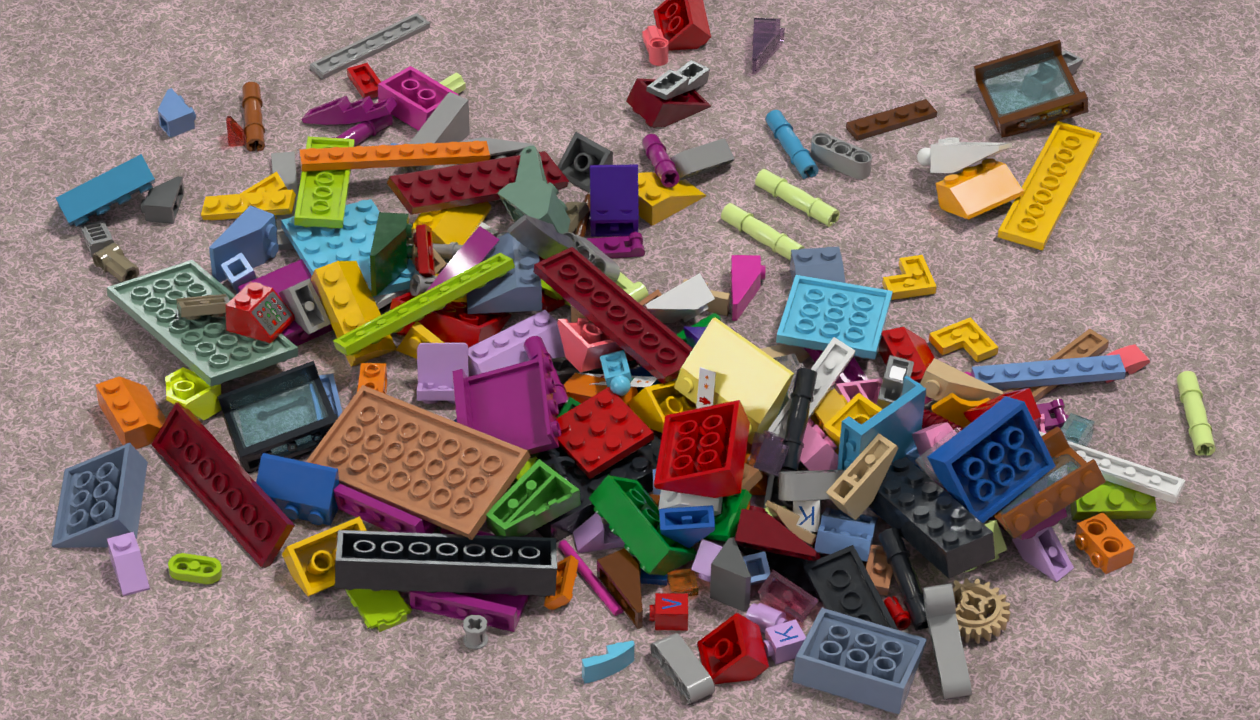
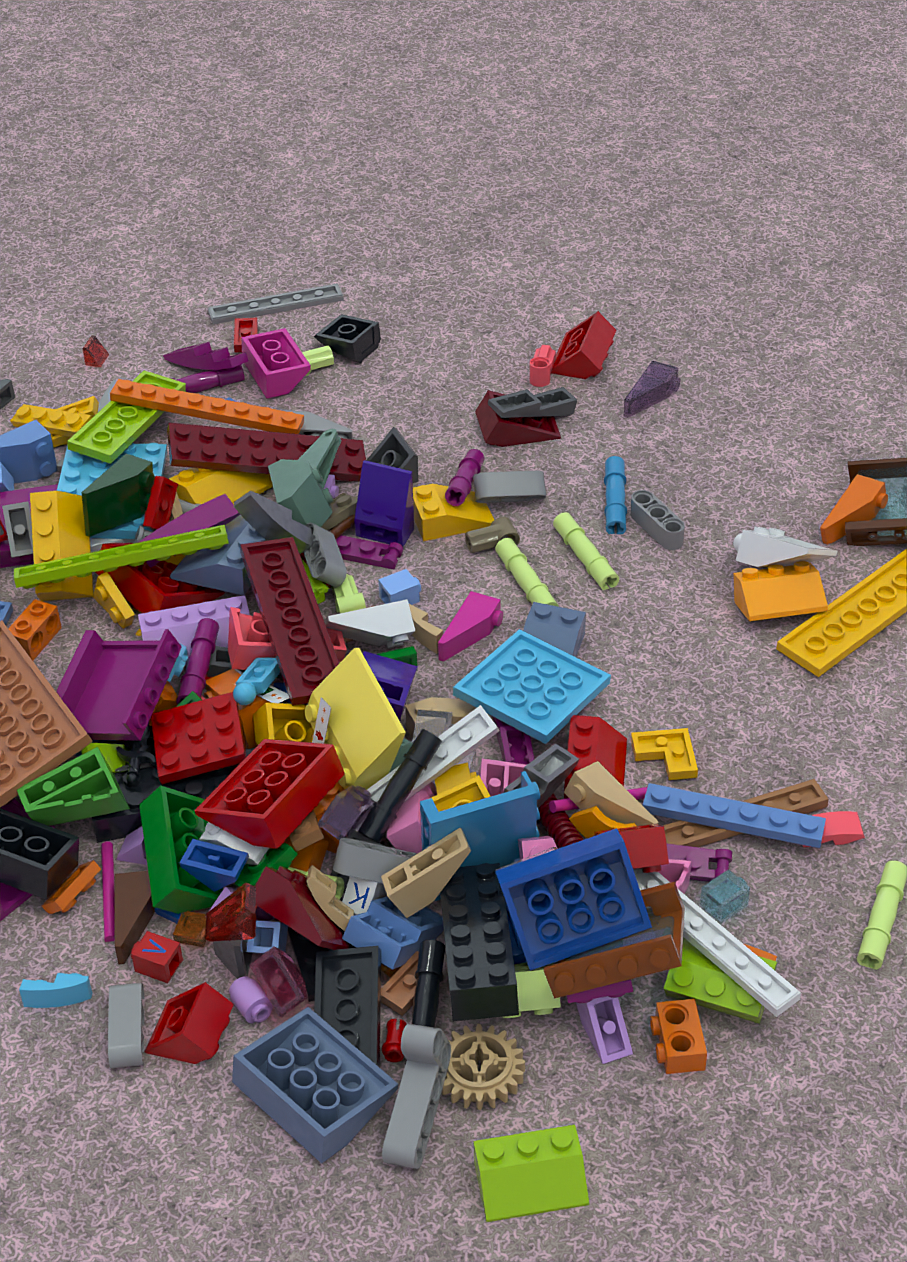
camera: 25 degrees right, 0 degrees up
(175, 115) = (54, 323): medium blue slope -> none
(253, 116) = (122, 342): dark orange piece -> none
(435, 370) = (110, 620): lavender bracket -> none
(445, 125) = (280, 391): light grey slope -> none
(468, 58) = (351, 337): none -> black slope
(665, 271) = (399, 587): none -> light blue brick
(711, 206) = (489, 536): none -> dark tan piece
(736, 554) = (233, 917): none -> clear red slope
(783, 641) = (247, 1028): lavender brick -> none
(891, 119) = (738, 496): reddish brown plate -> none
(913, 281) = (650, 674): yellow plate -> none
(998, 102) = (858, 503): none -> orange slope
(1056, 668) = (530, 1173): none -> lime slope

